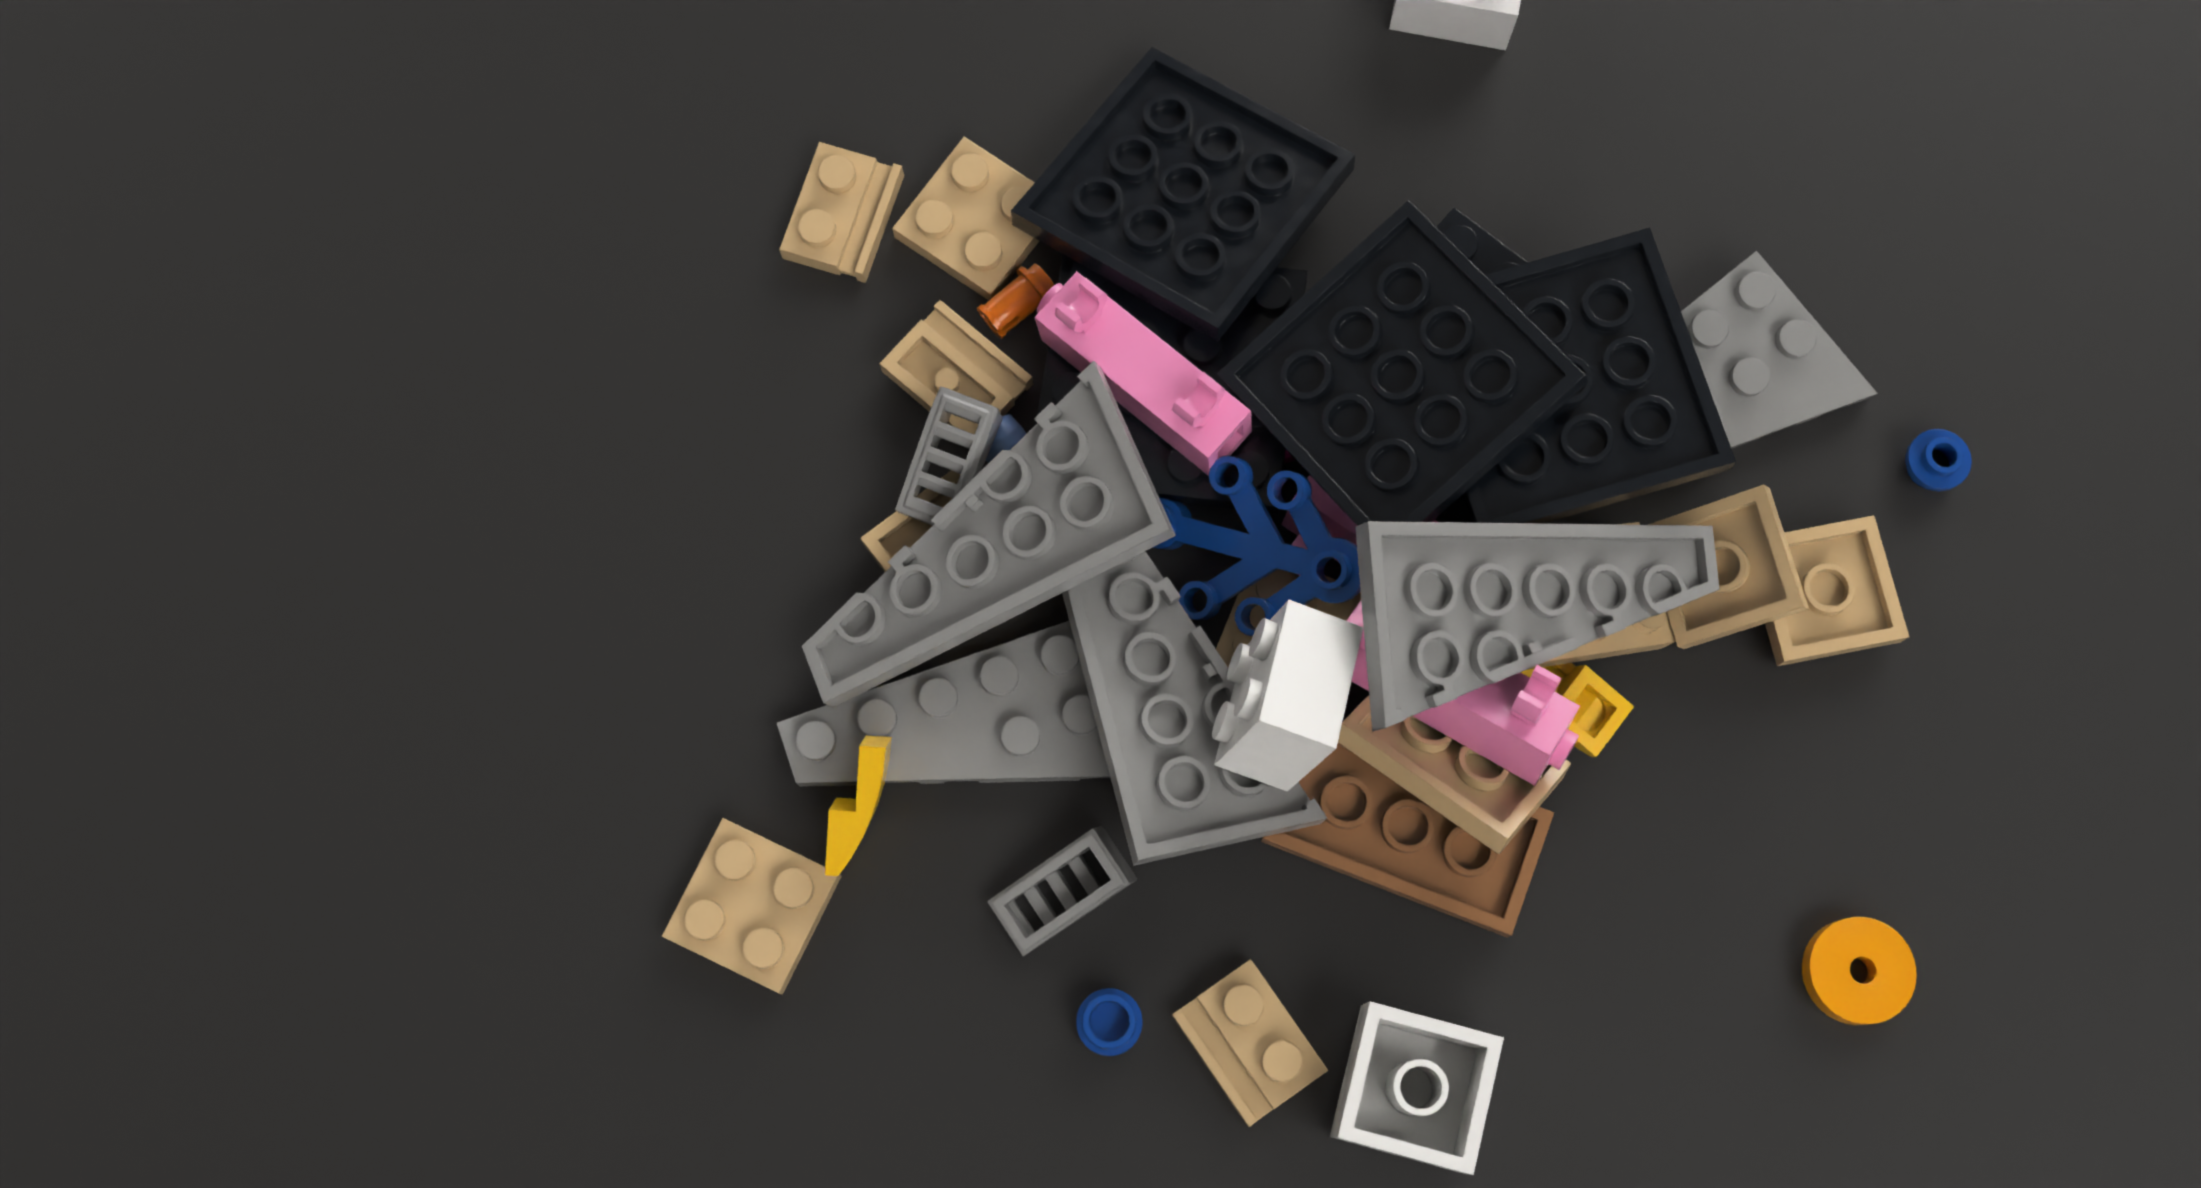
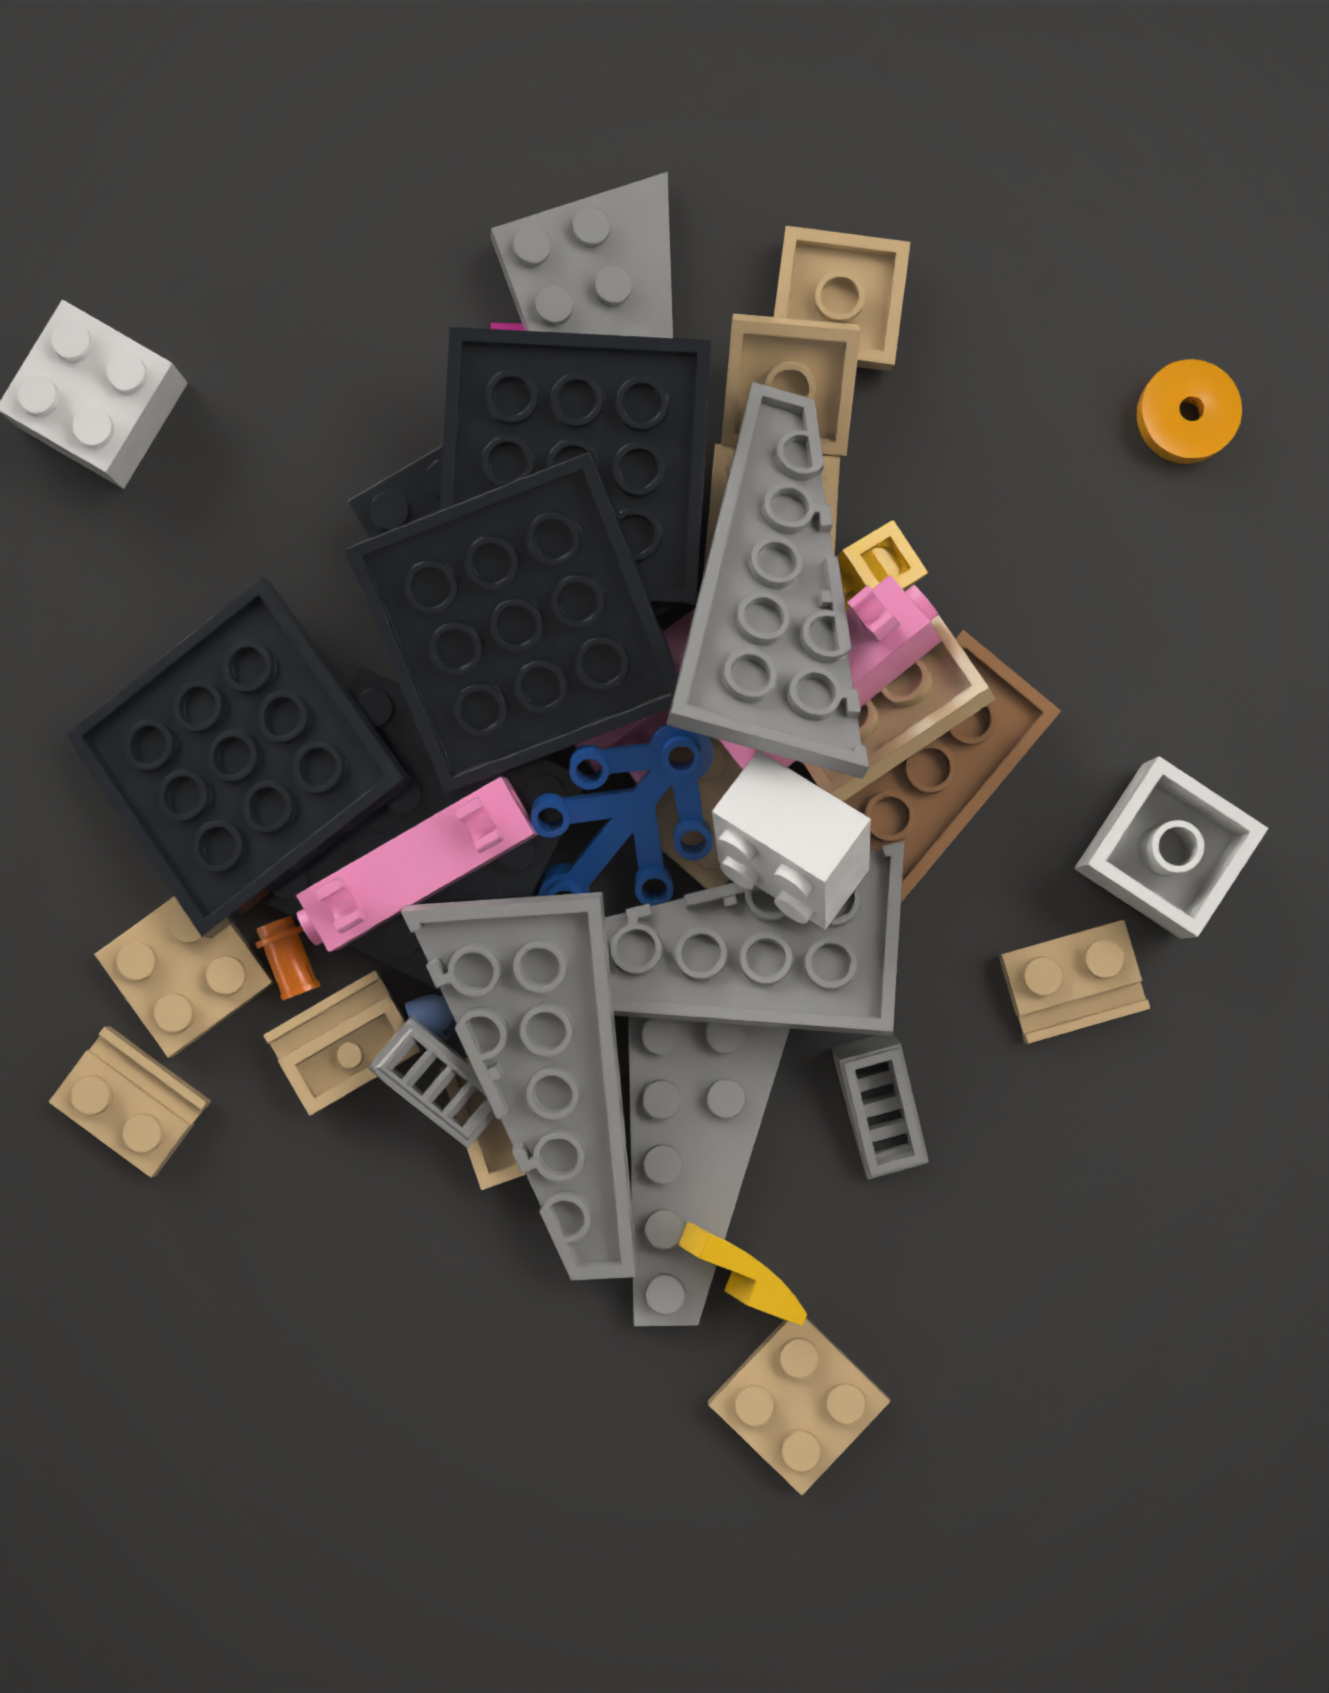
camera: 75 degrees left, 10 degrees up
(1109, 1022) = (1015, 1103): blue plate -> none
(1926, 471) = (750, 160): blue plate -> none

